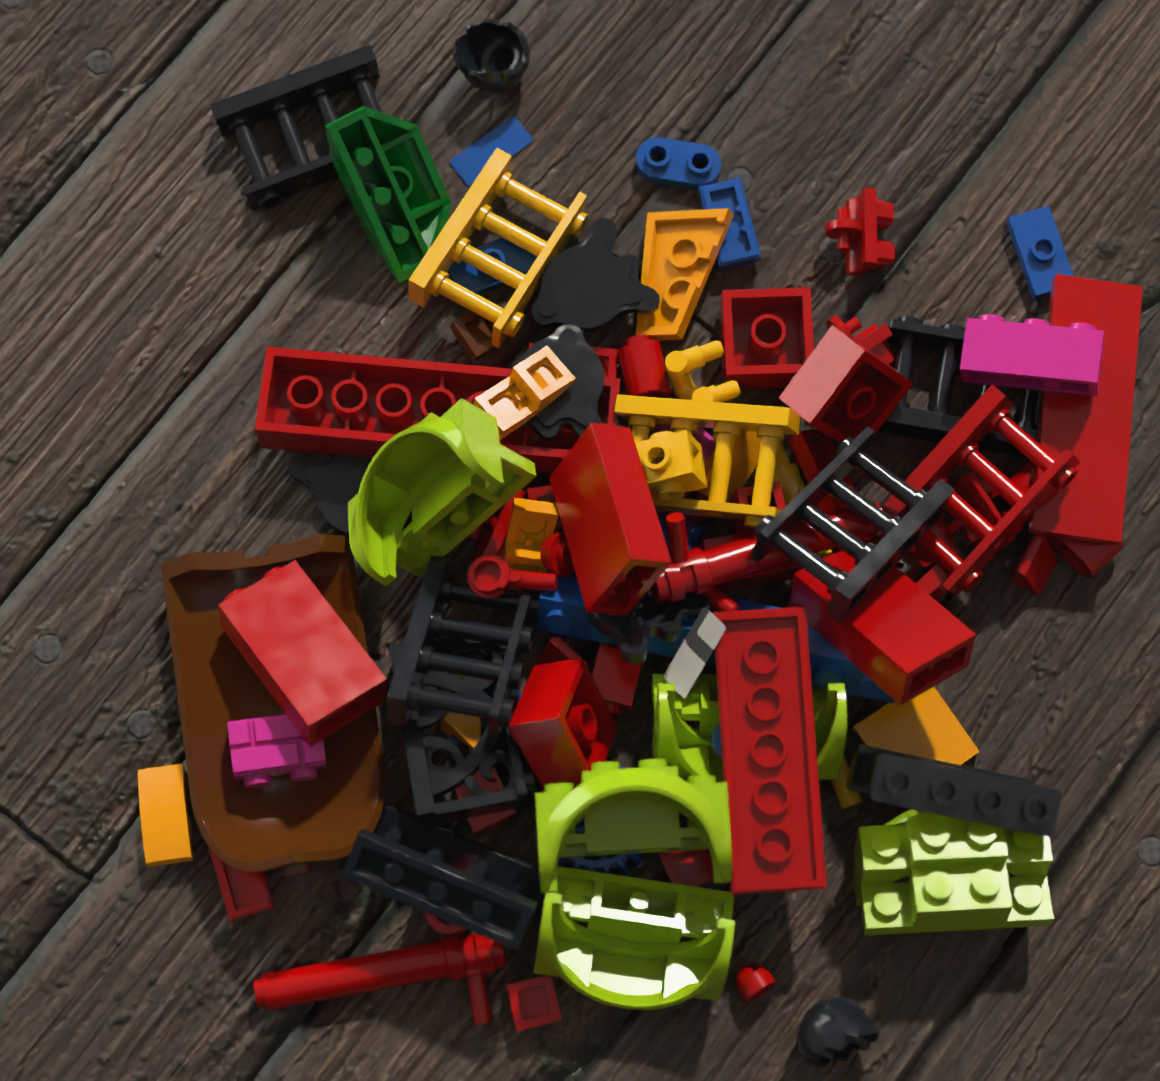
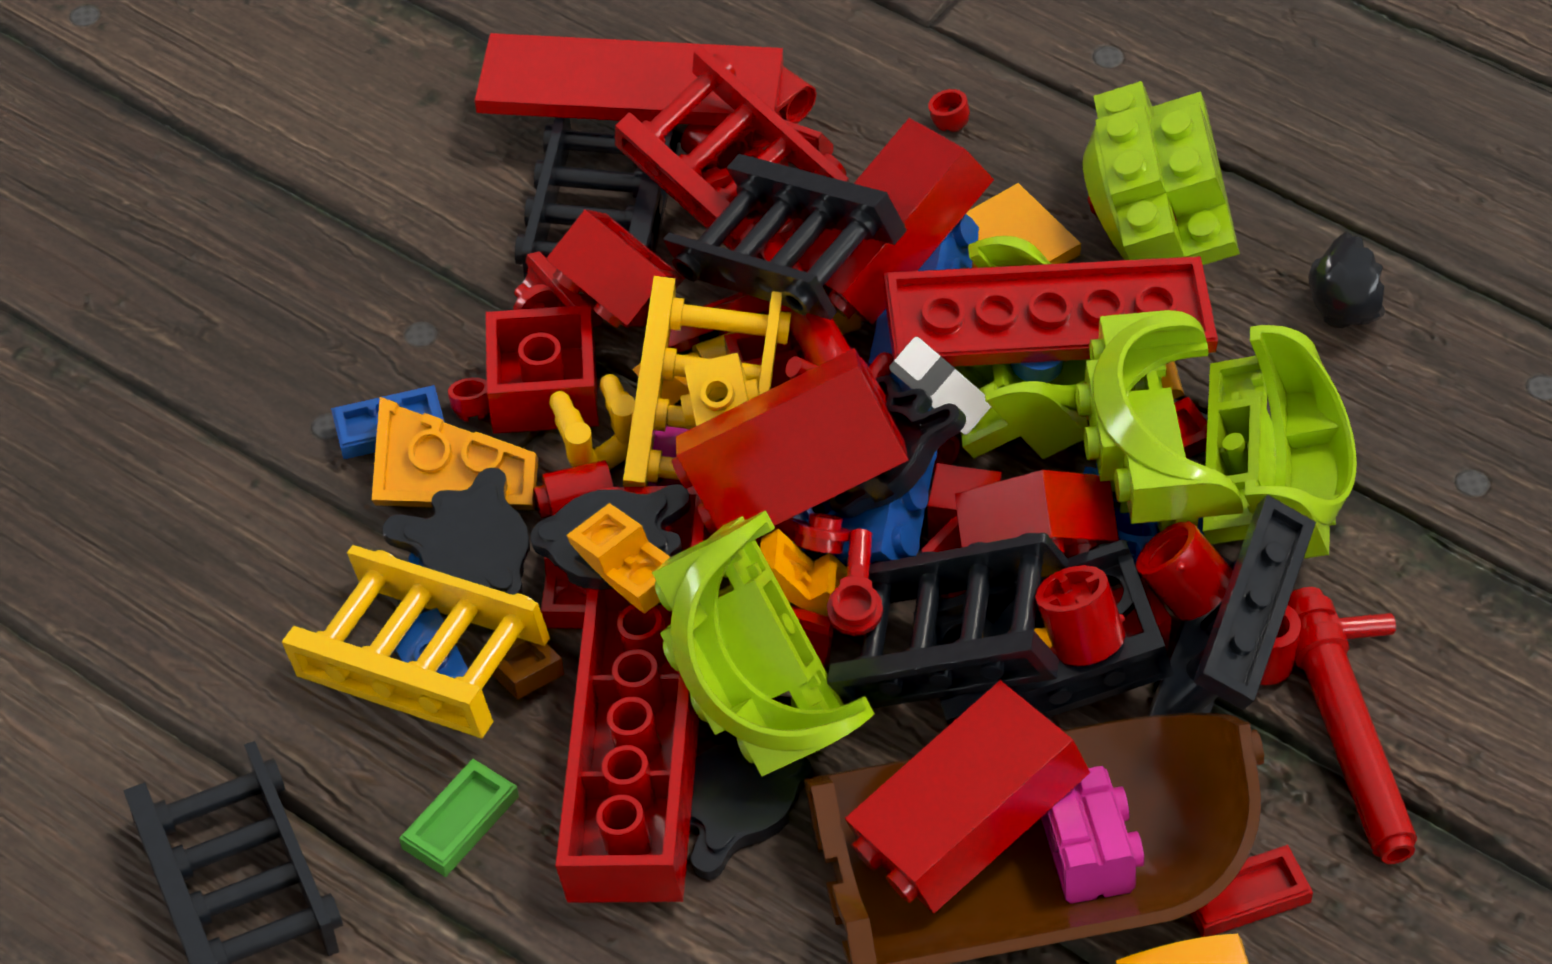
camera: 90 degrees left, 25 degrees down
(353, 288) = (459, 817): none -> bright green tile
(390, 185) = (342, 754): green wedge -> none
(444, 747) = (1080, 615): none -> red piece
(492, 55) = (150, 658): black hair -> none
(501, 843) = (1184, 570): none -> red piece
(508, 136) = (271, 680): blue sticker -> none
(534, 1002) = (1360, 569): red plate -> none
(677, 166) = (307, 475): blue plate -> none
(750, 278) = (469, 398): none -> red hinge
(857, 232) = (406, 294): red hips -> none
(954, 790) = (1075, 161): black fence -> none
(1032, 355) = (575, 106): dark pink brick -> none
(1038, 249) = (435, 146): blue plate -> none
(1072, 690) = (949, 110): none -> red hinge

